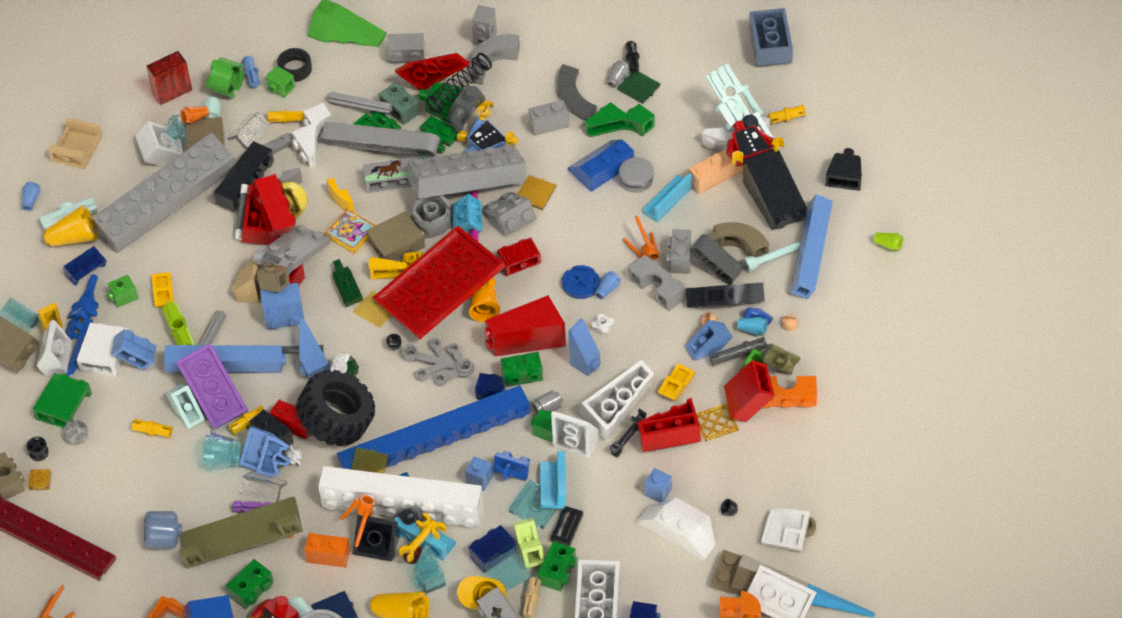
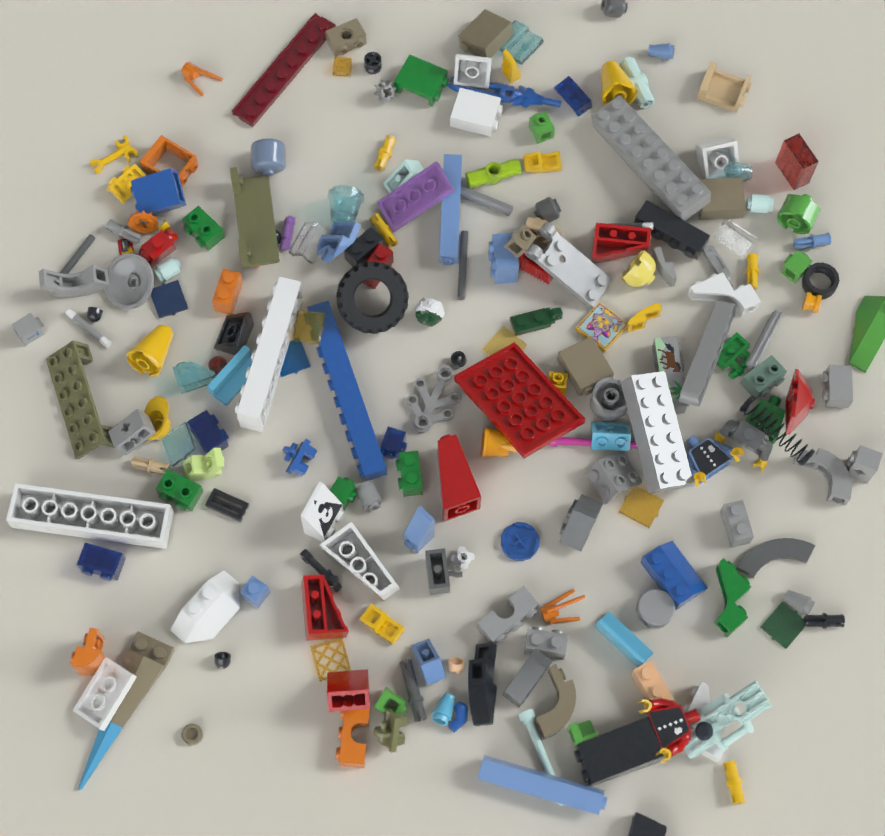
camera: 90 degrees right, 15 degrees up
(133, 349) = (466, 133): medium blue brick -> none
(193, 113) = (745, 181): orange cone -> none
(221, 279) = (547, 209): none -> dark grey head
(273, 205) = (615, 245): red wedge -> none
(295, 455) = (337, 268): white plate -> none
(310, 354) = (450, 282): medium blue slope -> none
(318, 69) = (811, 302): none -> light orange wheel
(364, 508) = (253, 316): orange plant -> none
(385, 268) = (548, 352): yellow slope -> none
(404, 518) = (244, 358): black hinge -> none
(426, 527) = (230, 377): yellow bar -> none
(444, 131) = (729, 411): green plate -> none
(479, 472) = (292, 426): medium blue brick -> none
(519, 256) = (553, 481): red brick -> none
(528, 505) = (255, 478): clear light blue tile -> none
(553, 482) = (273, 493): medium azure panel -> none
(562, 226) = (581, 520): none -> brick
(608, 283) = (512, 567): medium blue cone -> none
(621, 336) = (438, 571): none -> dark grey brick
(761, 221) = (581, 732): none -> bright green panel
(770, 37) = (845, 776): sand blue brick -> none
(786, 529) = (188, 712): white plate -> none
(789, 322) = (451, 750): light nougat hinge -> none

